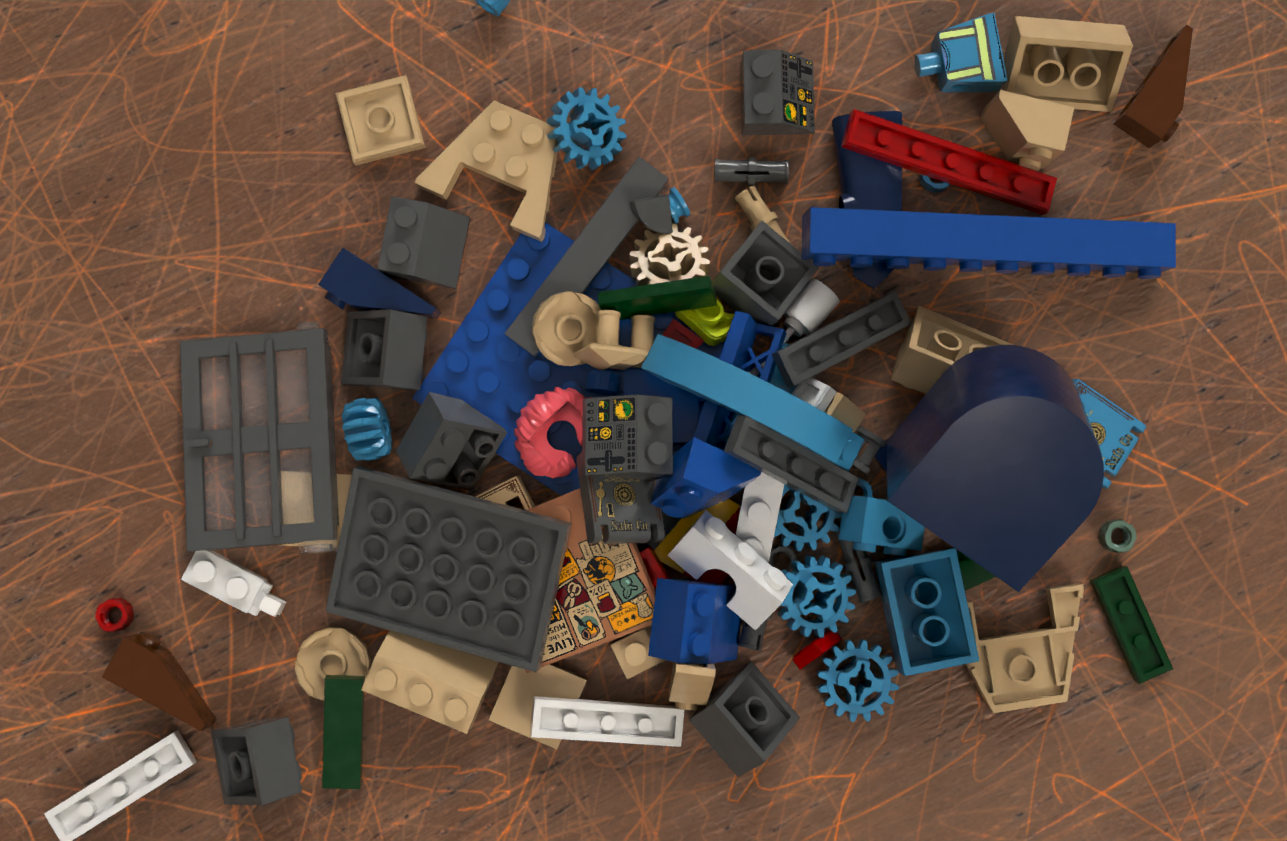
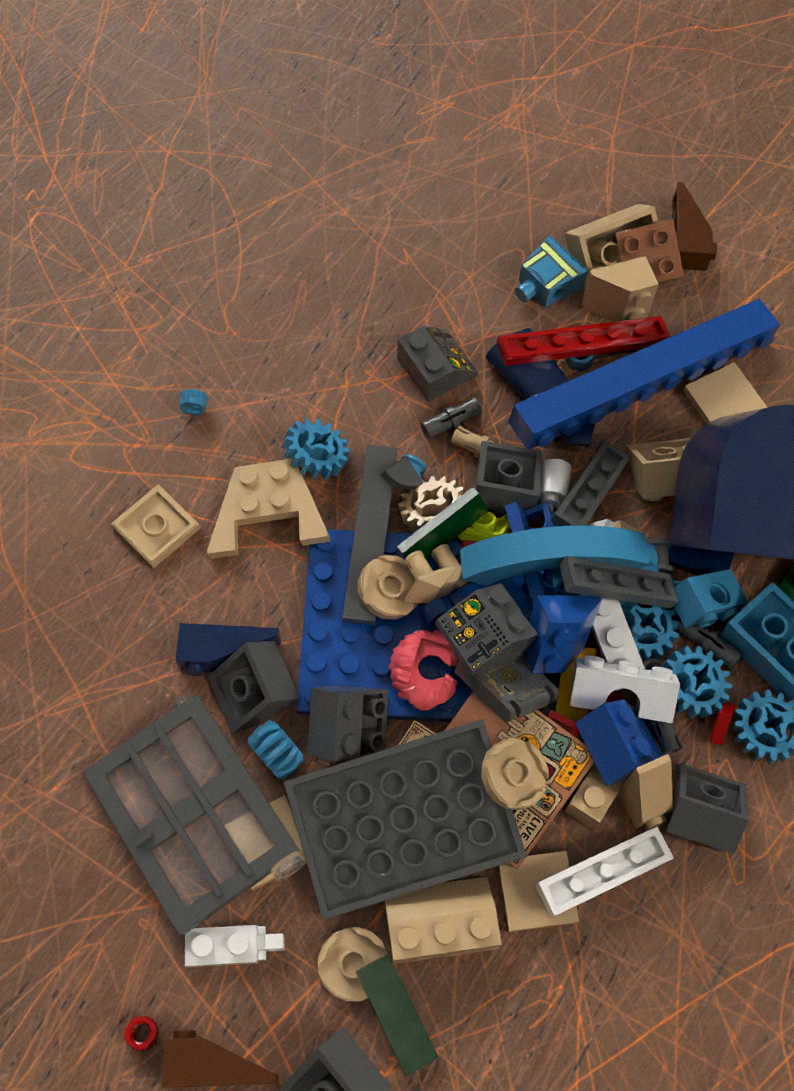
camera: 30 degrees left, 20 degrees down
(423, 243) = (240, 590): dark grey slope -> none
(568, 593) = (514, 774): none -> tan tile
(1059, 313) = (723, 394): none -> tan tile
(1097, 93) = (657, 243): none -> nougat hinge

